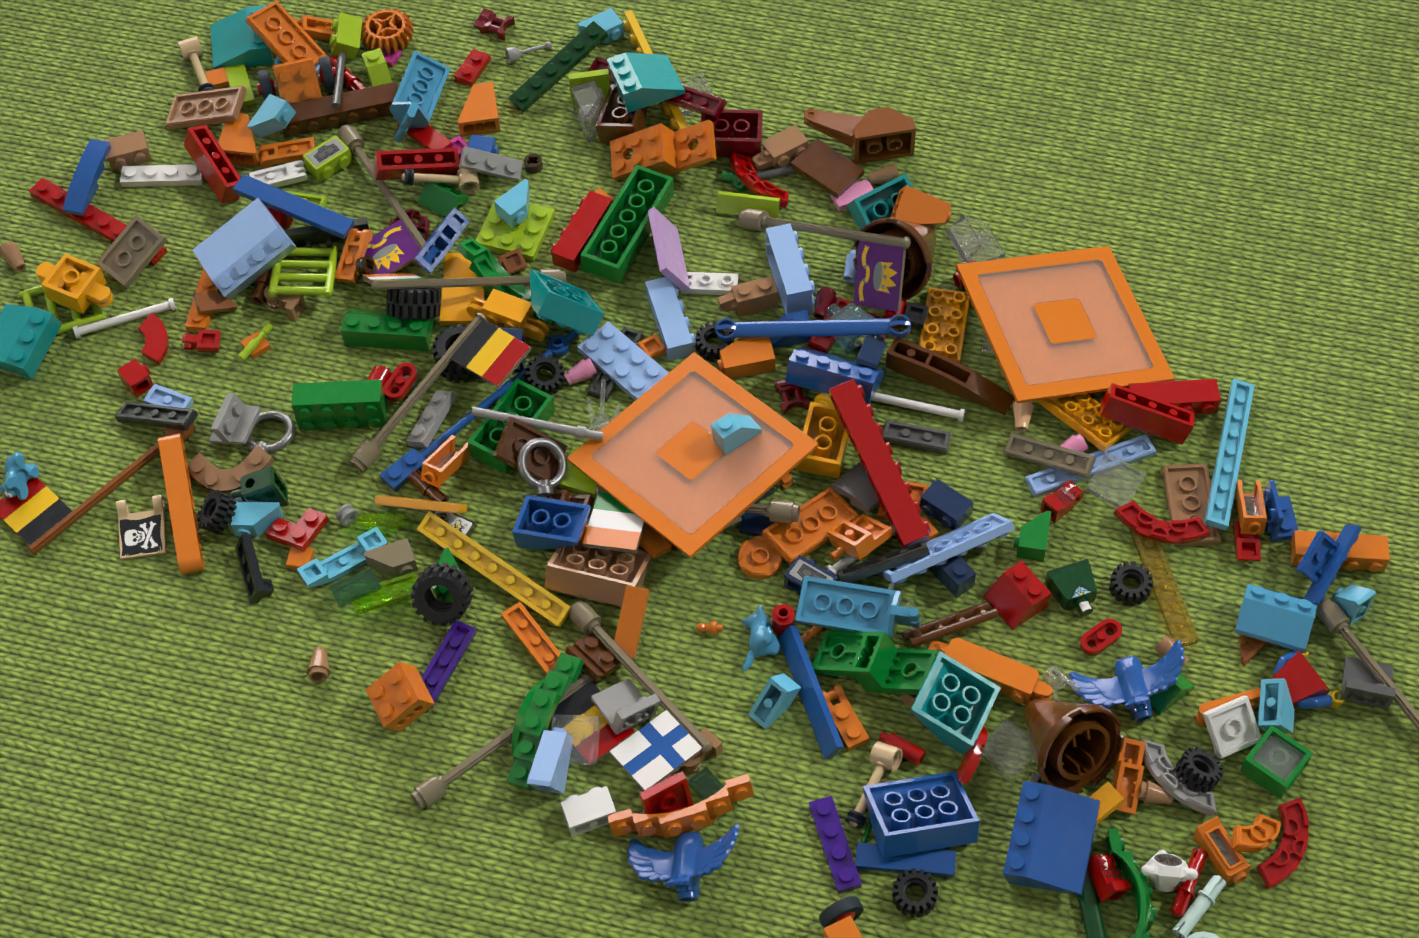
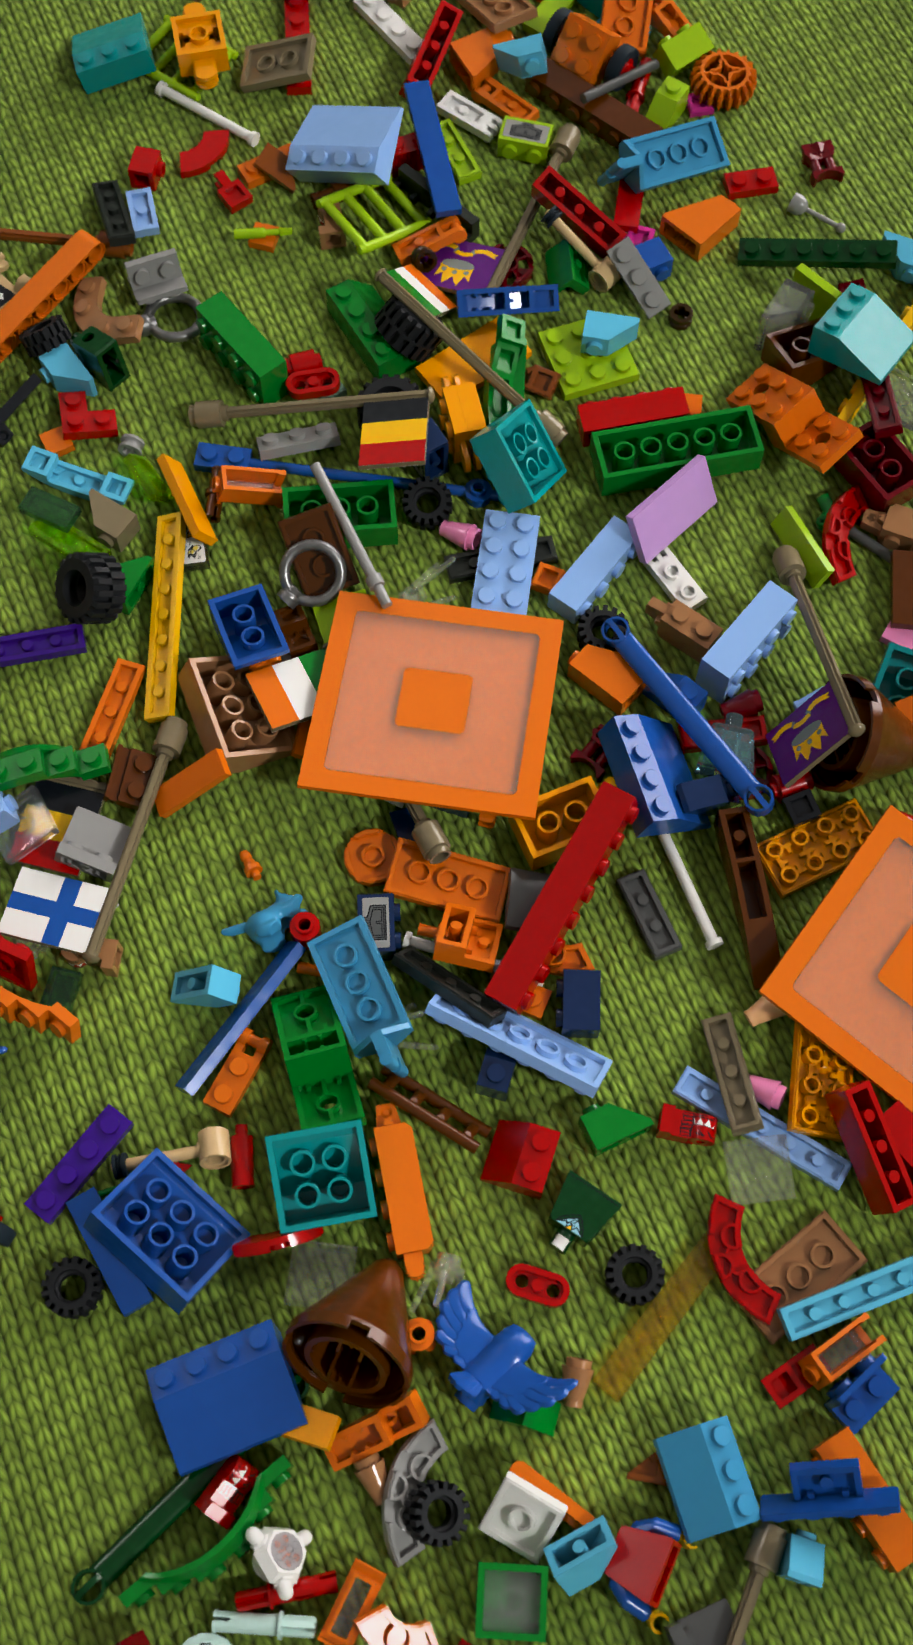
camera: 50 degrees right, 10 degrees up
(734, 431) = (483, 723): medium azure slope -> none

